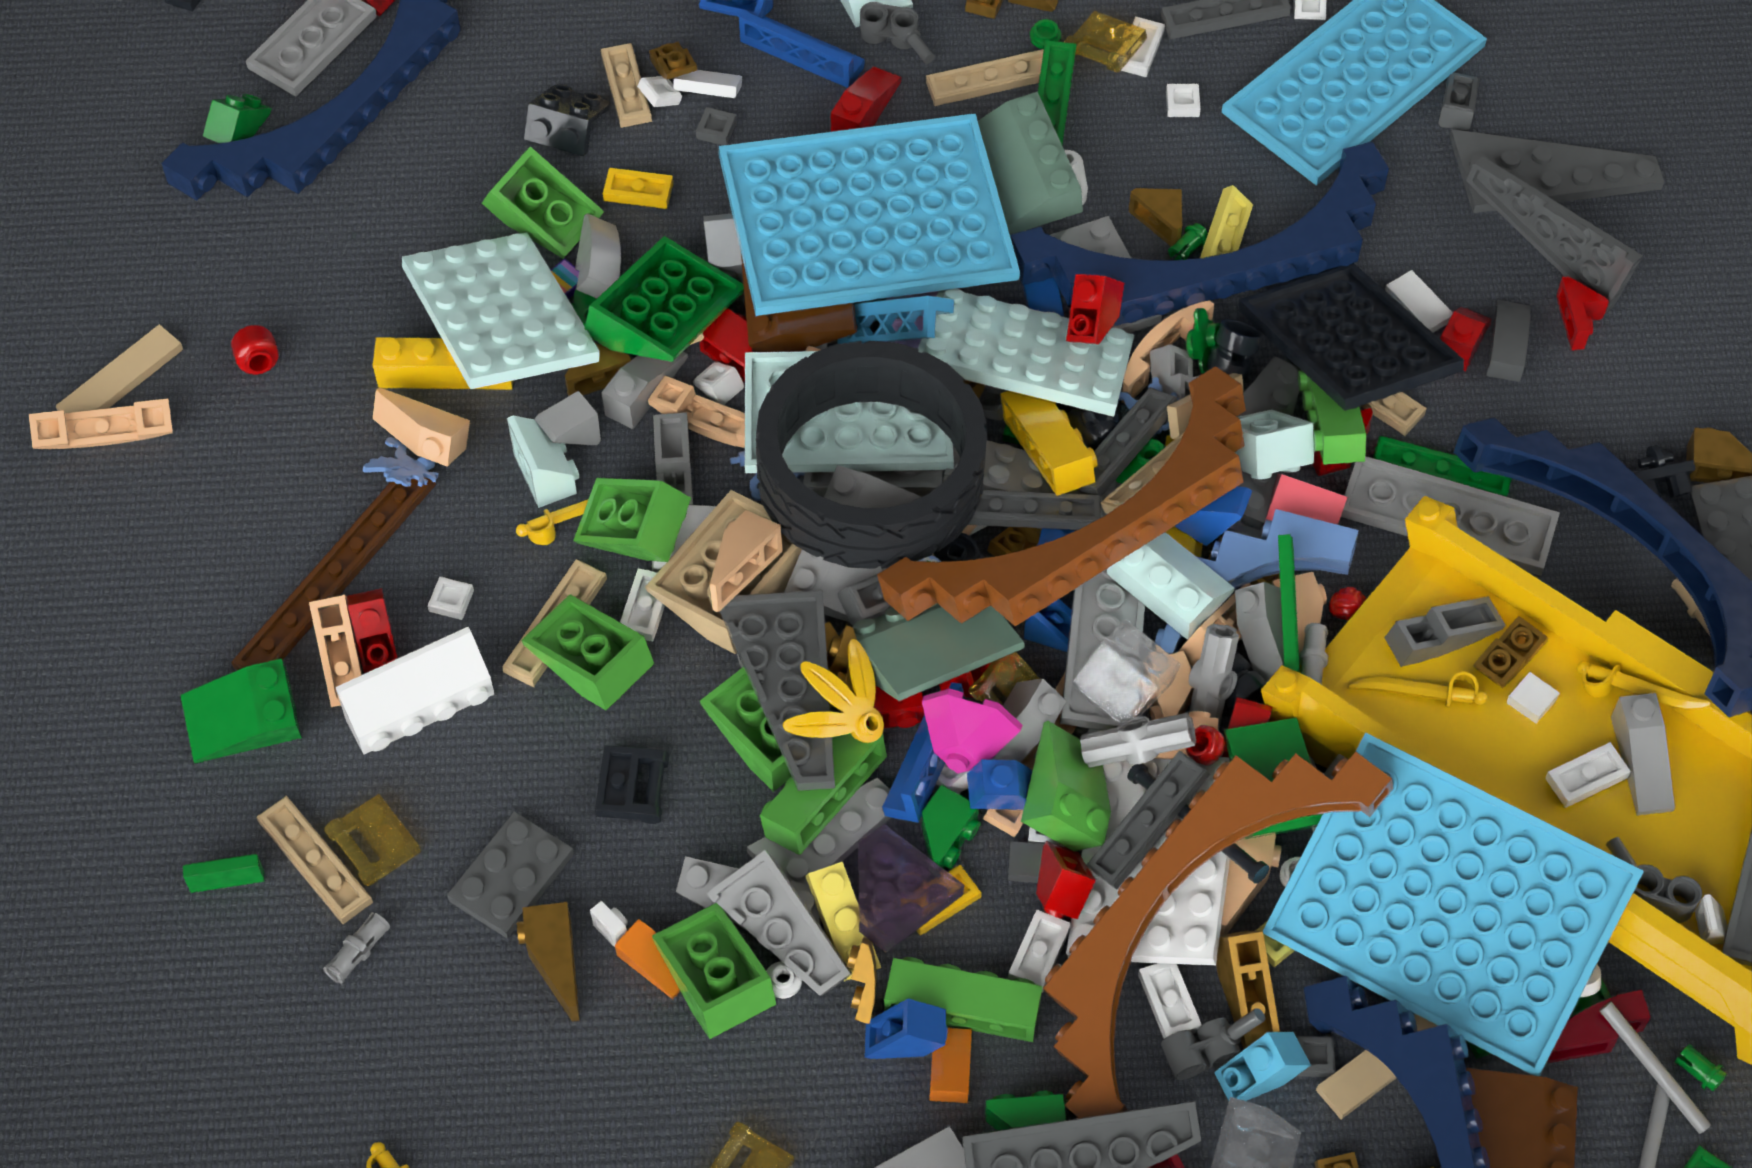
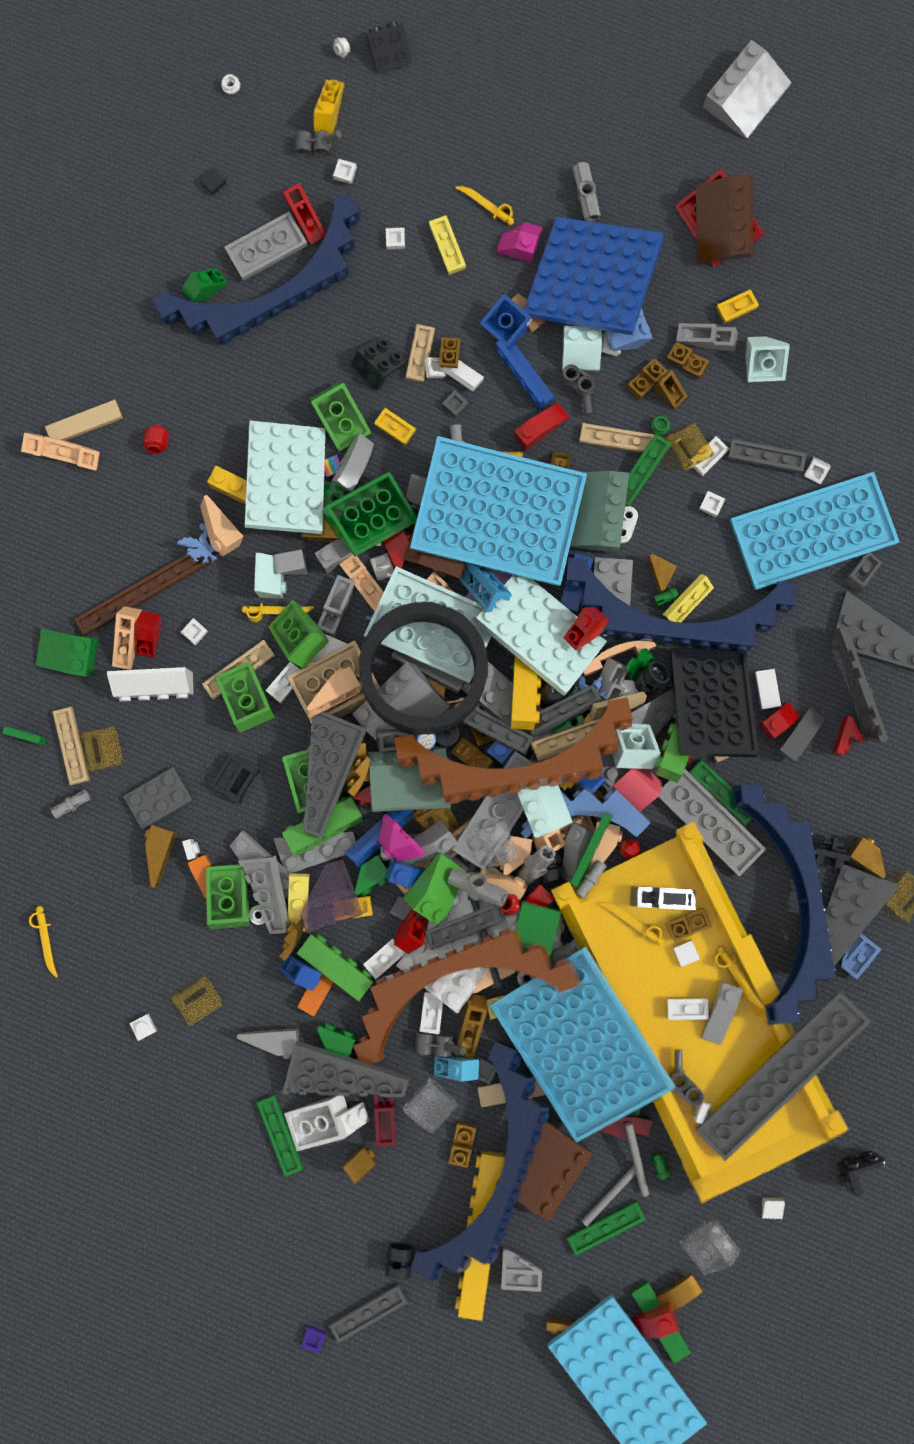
camera: 30 degrees right, 25 degrees up
(854, 708) = (349, 803): yellow plant -> none

